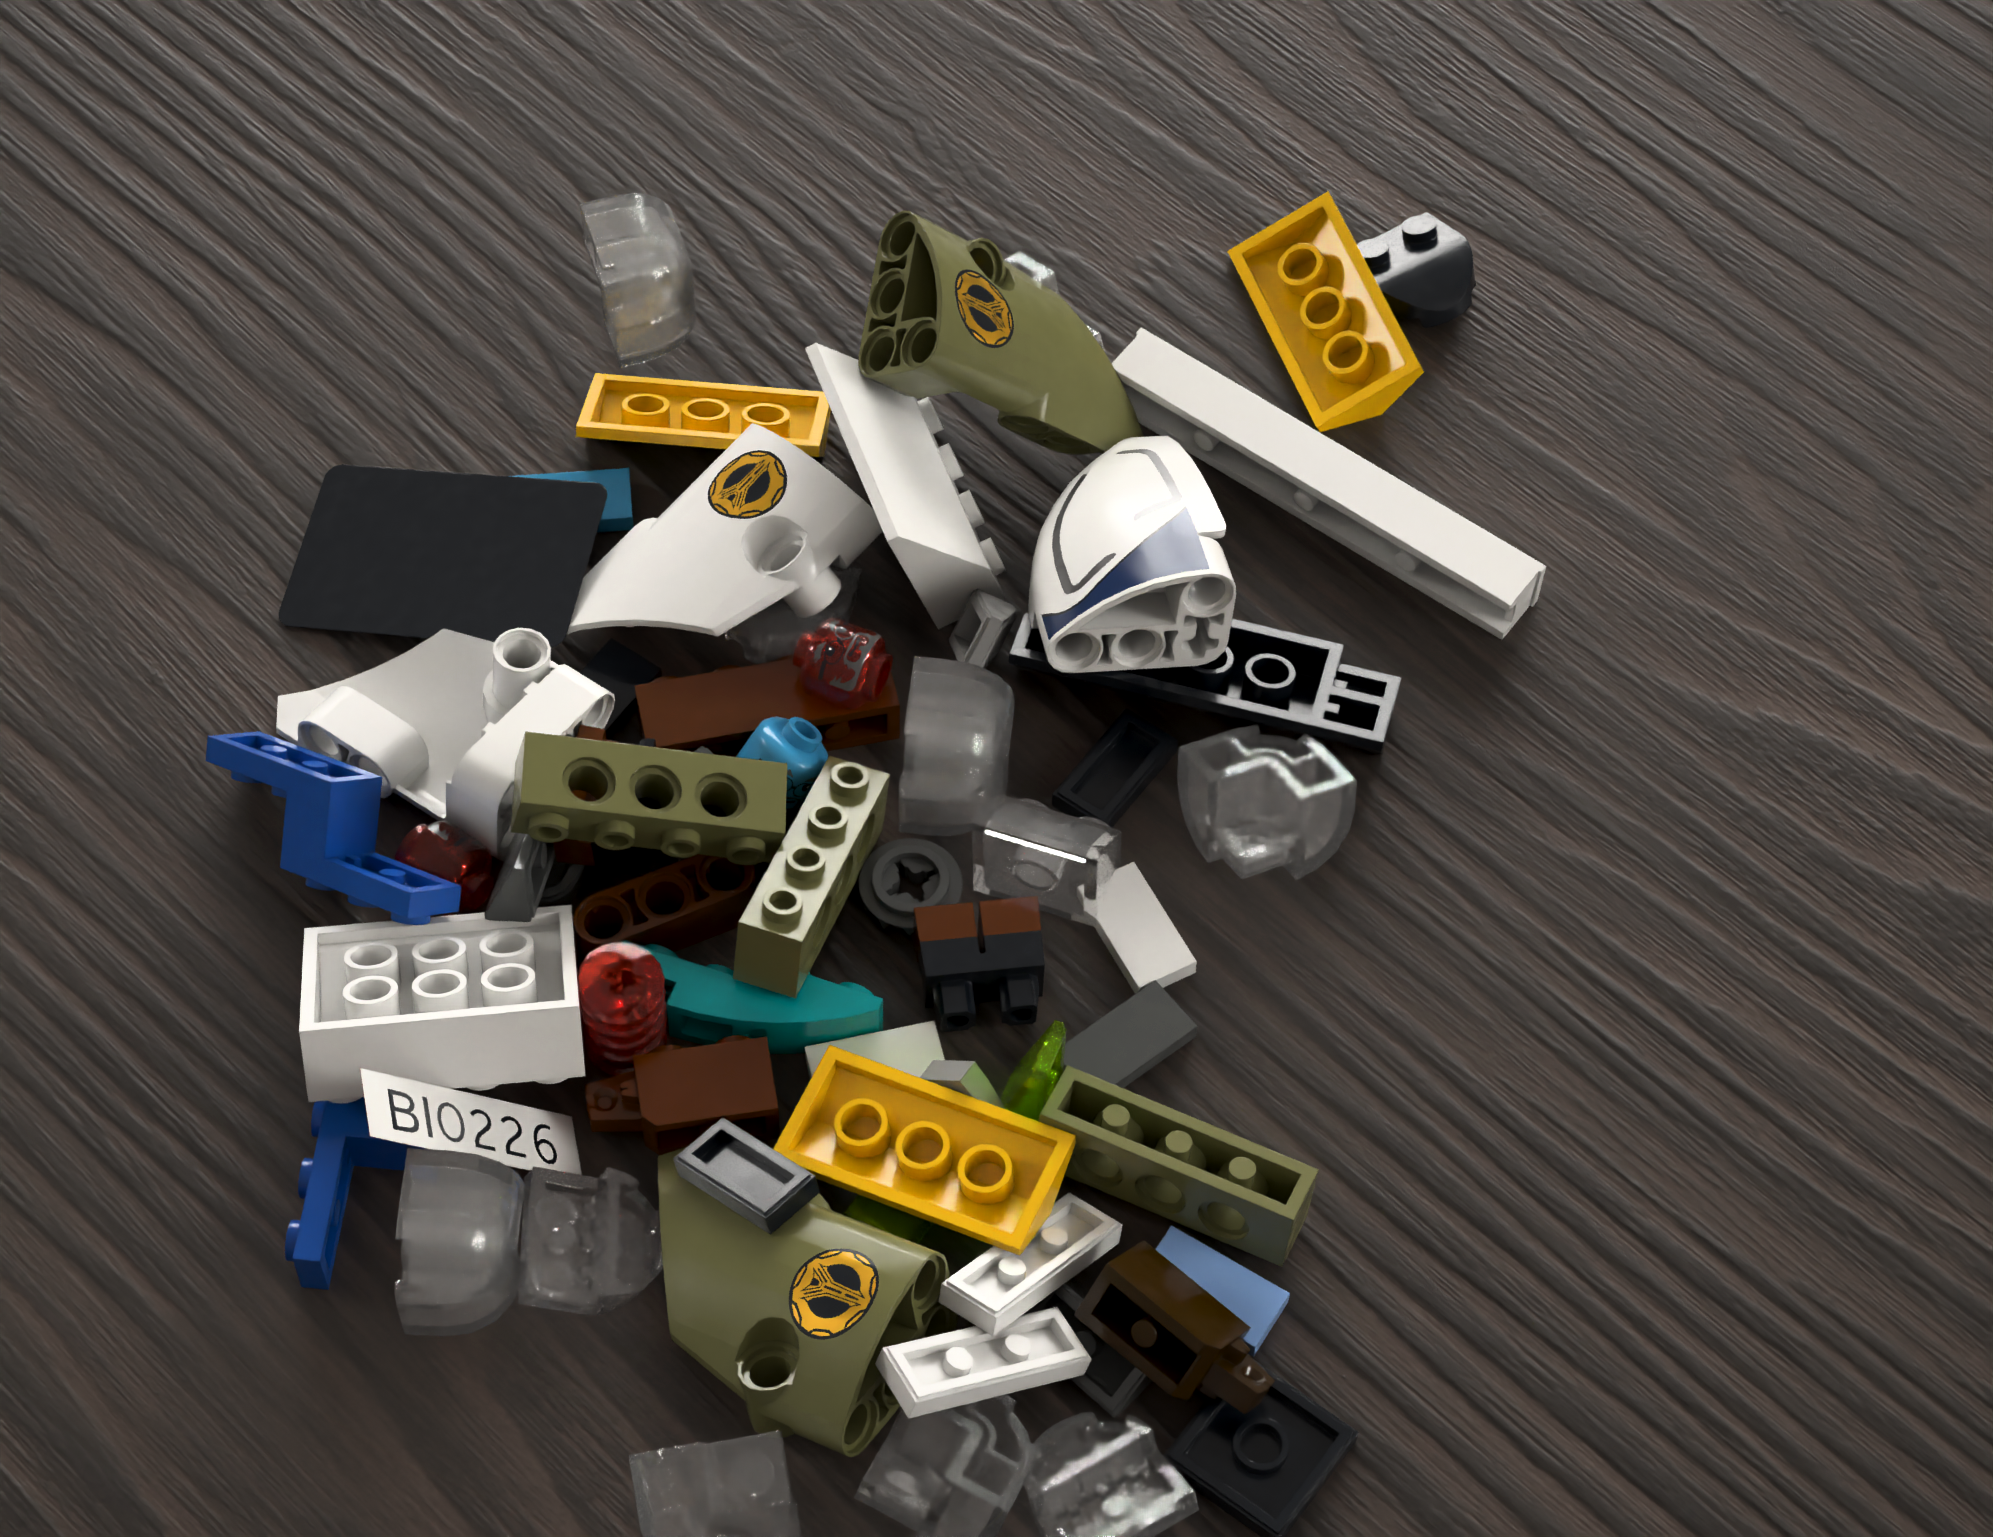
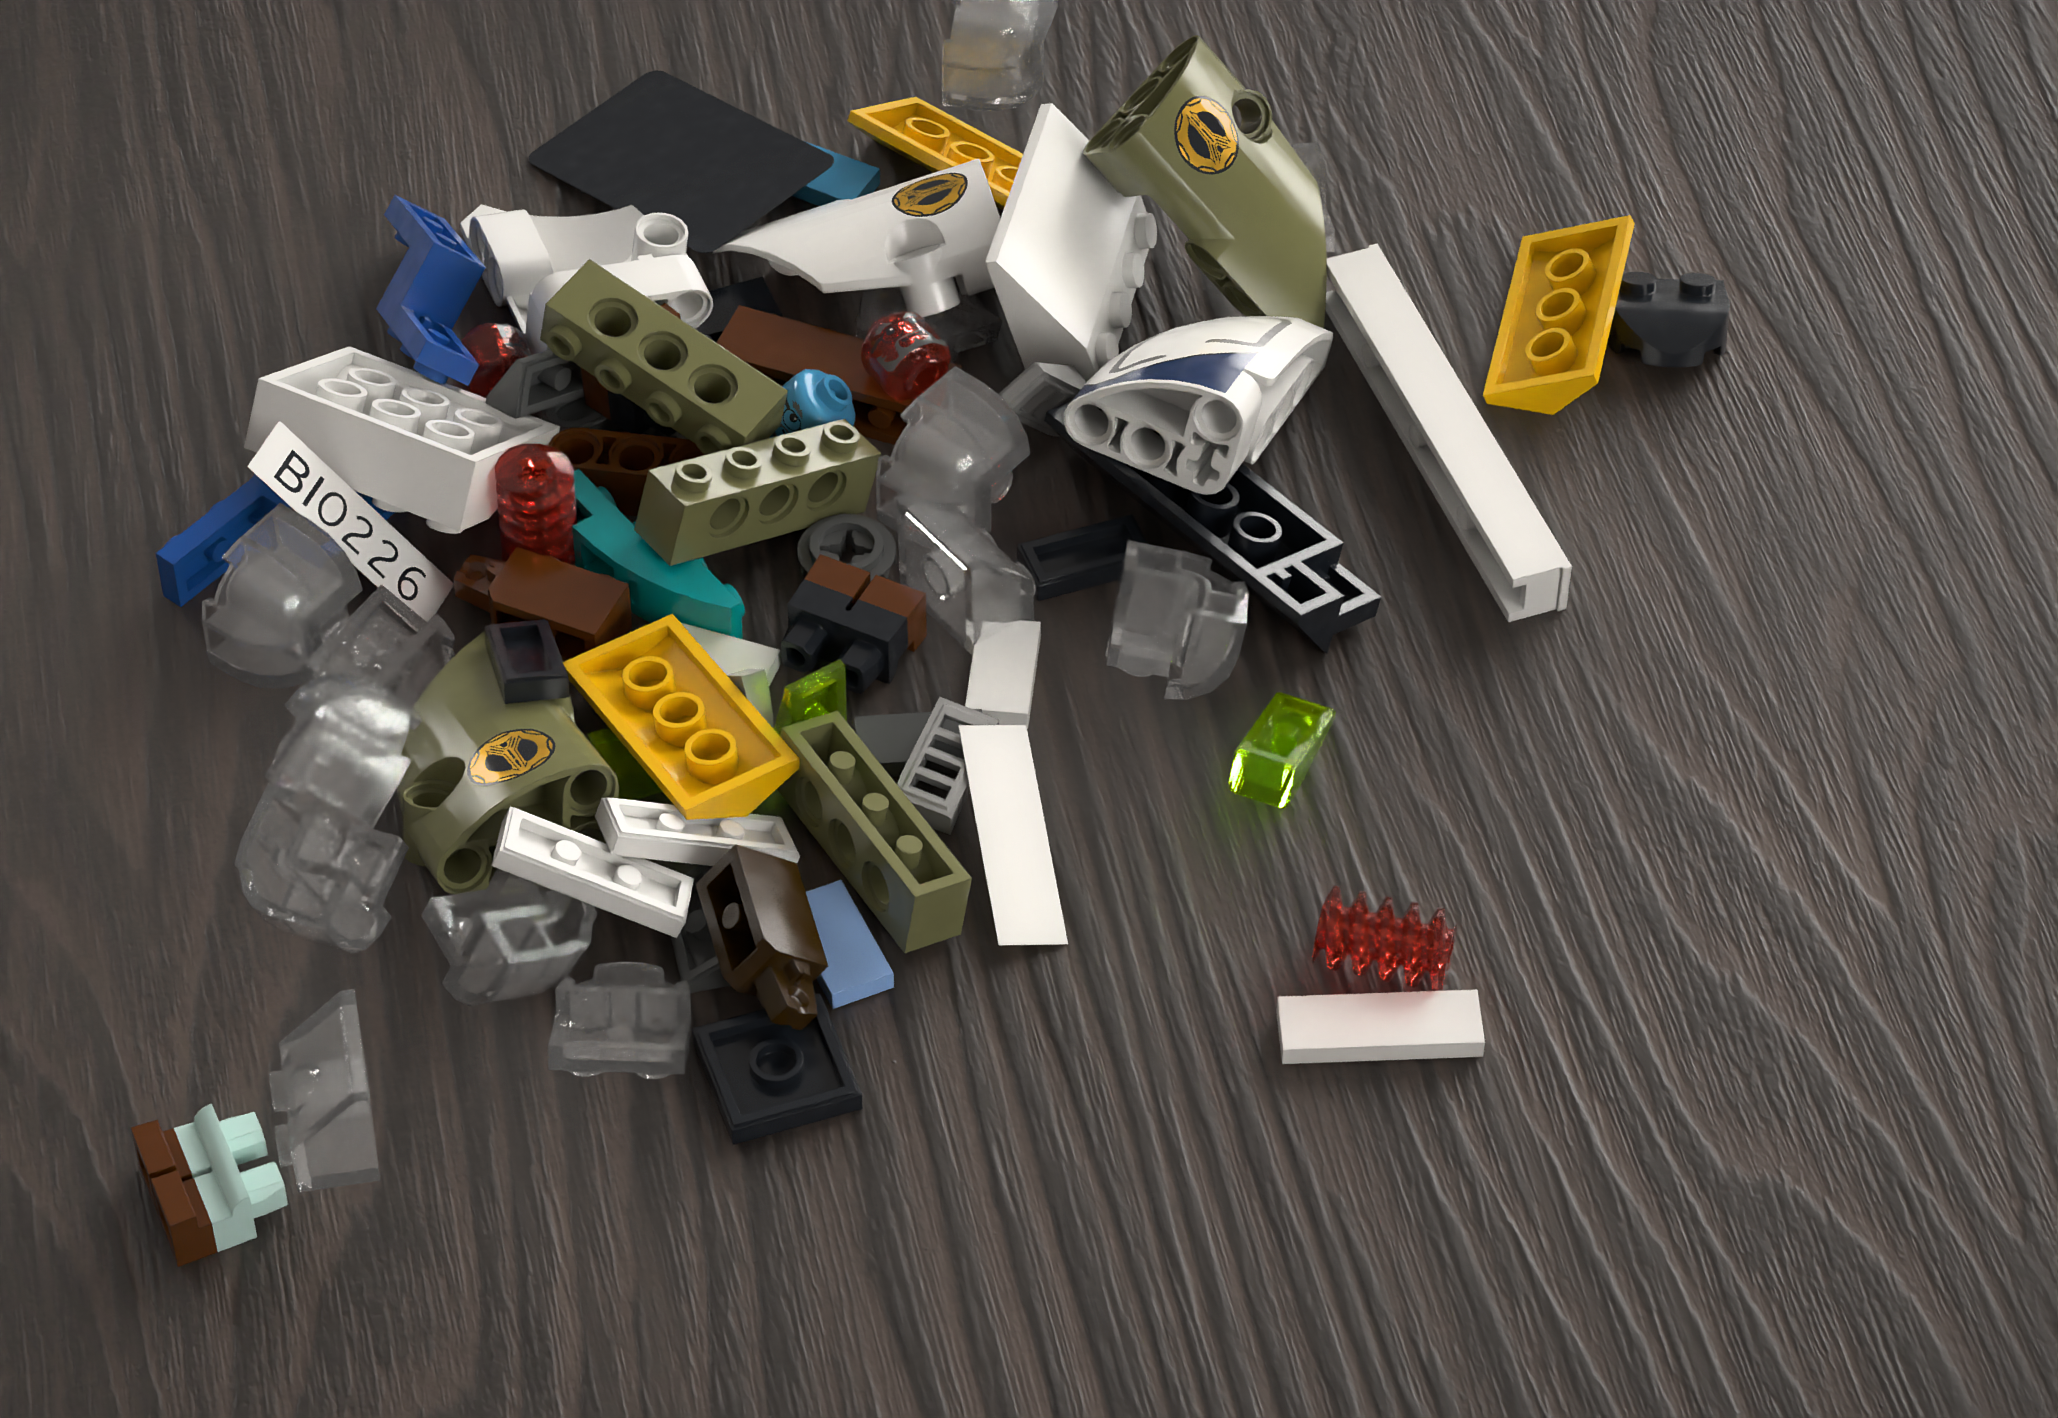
camera: 35 degrees right, 10 degrees down
(645, 1364) = (345, 745): none -> clear brick
(1157, 1084) = (937, 811): none -> light grey slope
(1284, 1093) = (1012, 835): none -> white sticker
(1425, 873) = (1279, 750): none -> clear neon green slope
(1663, 1011) = (1385, 938): none -> clear red piece
(1713, 1099) = (1380, 1026): none -> white tile

